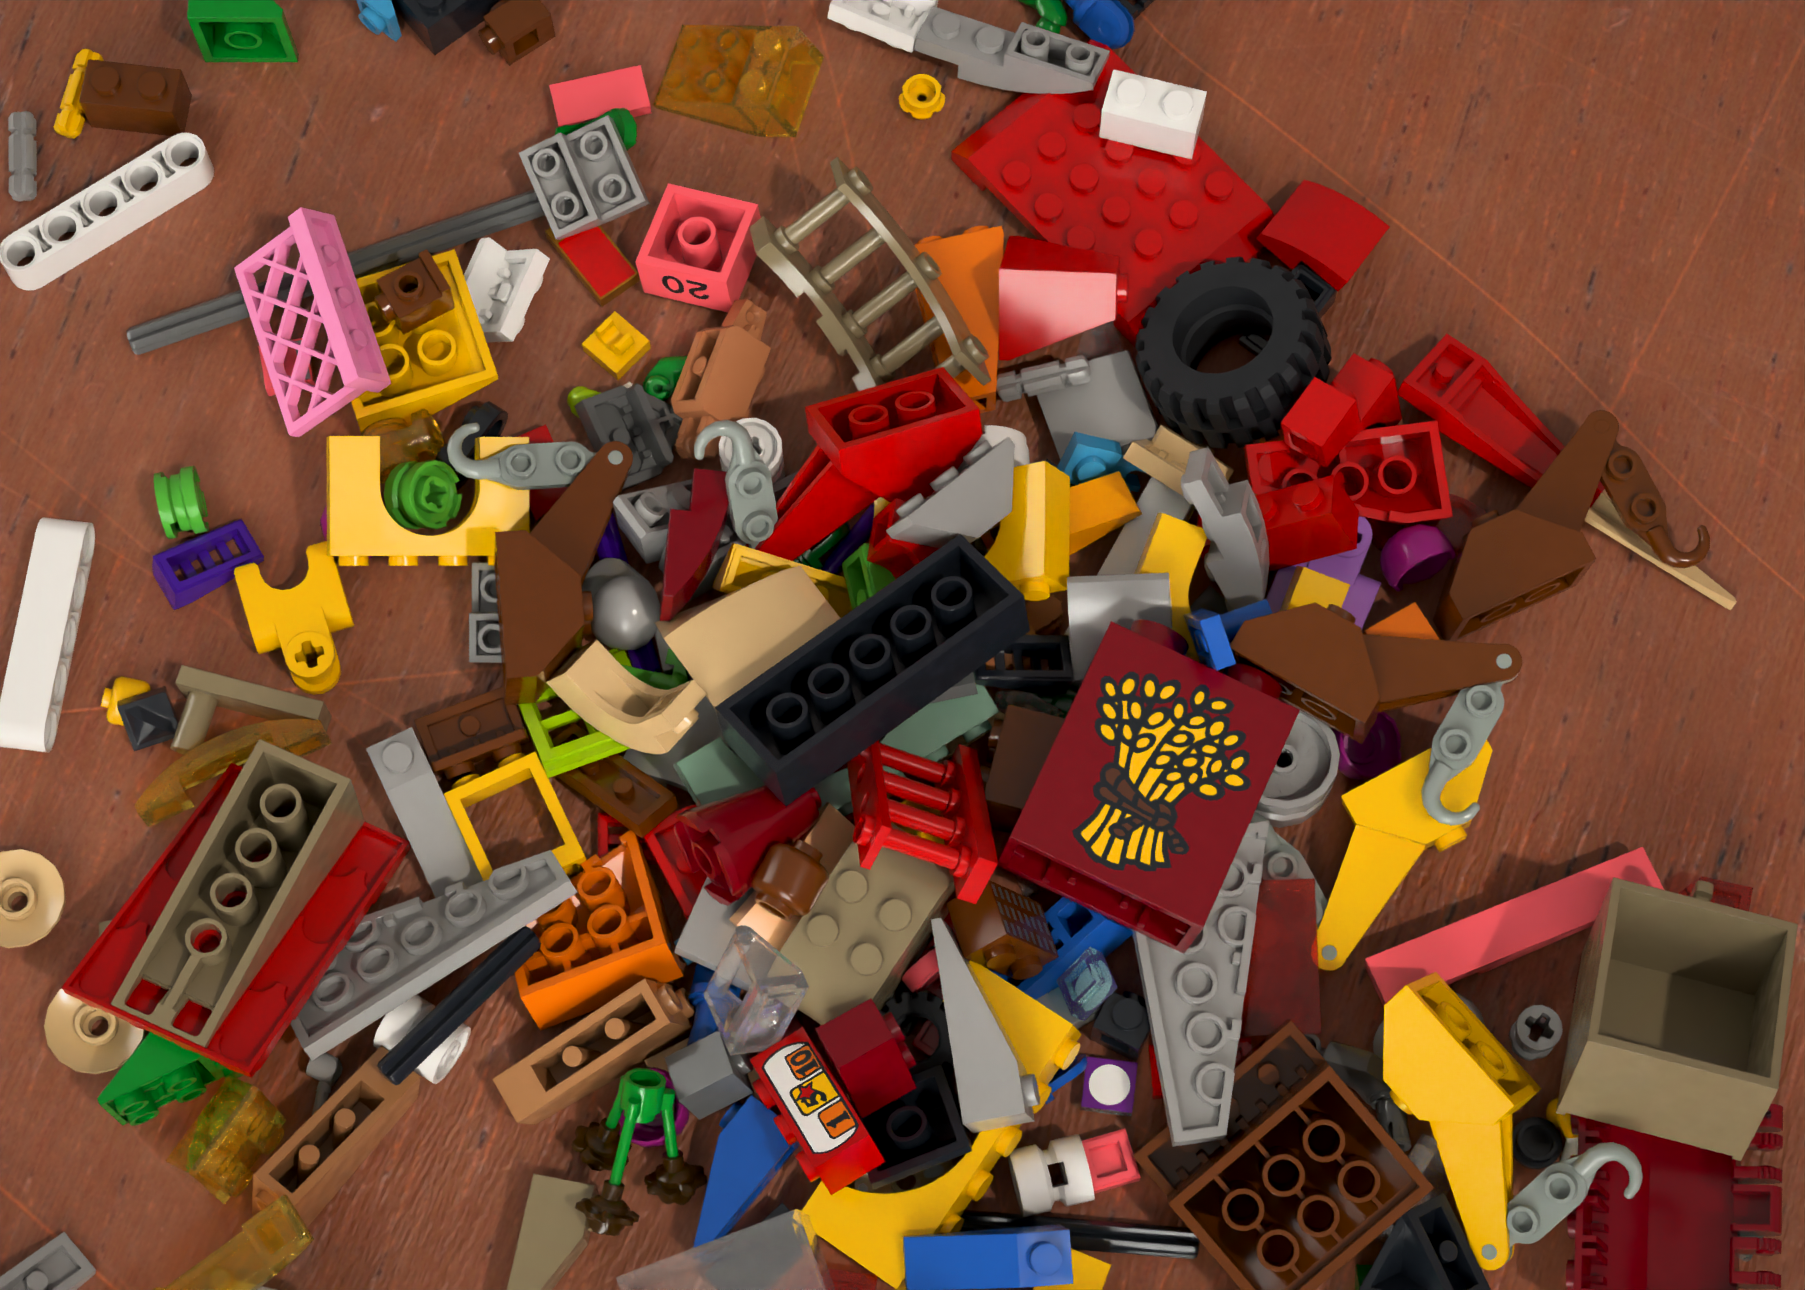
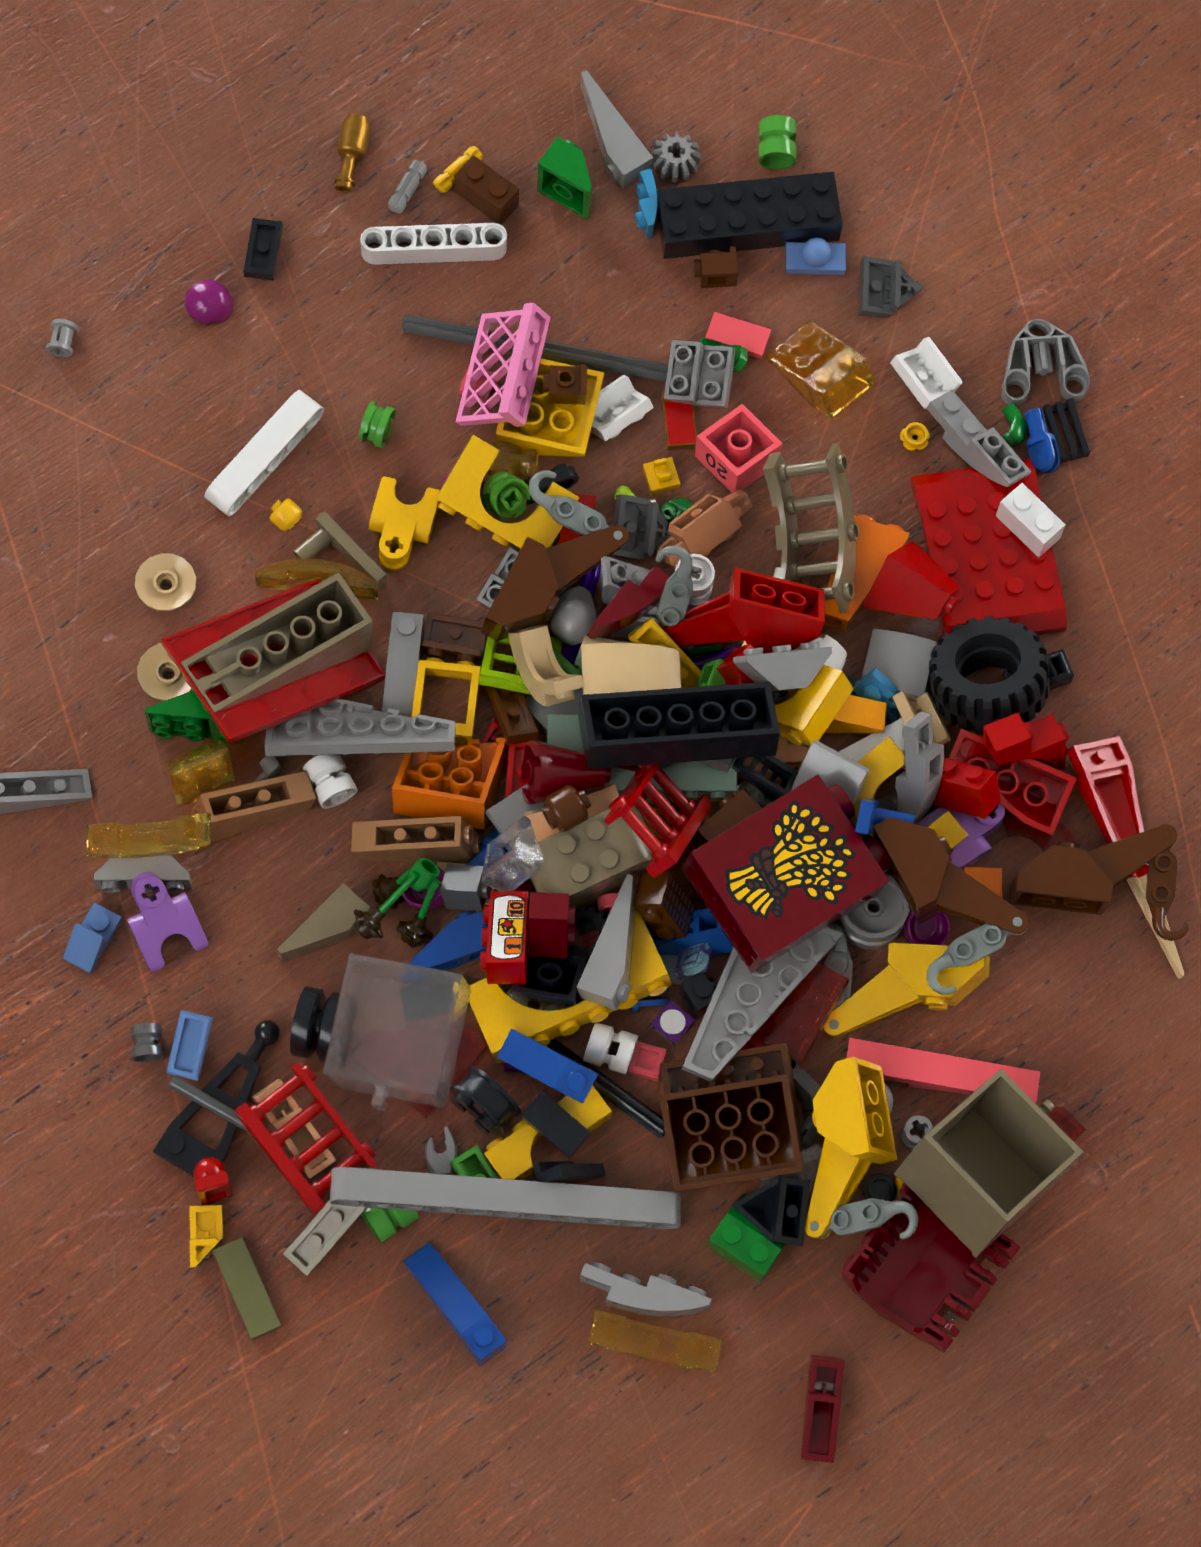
camera: 25 degrees right, 0 degrees up
(148, 718) = (290, 529): black tile -> none
(198, 585) = (361, 474): dark purple slope -> none
(458, 1005) = (358, 772): black axle -> none
(1043, 378) = (879, 629): light grey axle -> none
(1323, 232) = (1086, 640): red slope -> none
(1415, 555) = (1019, 844): magenta hair -> none

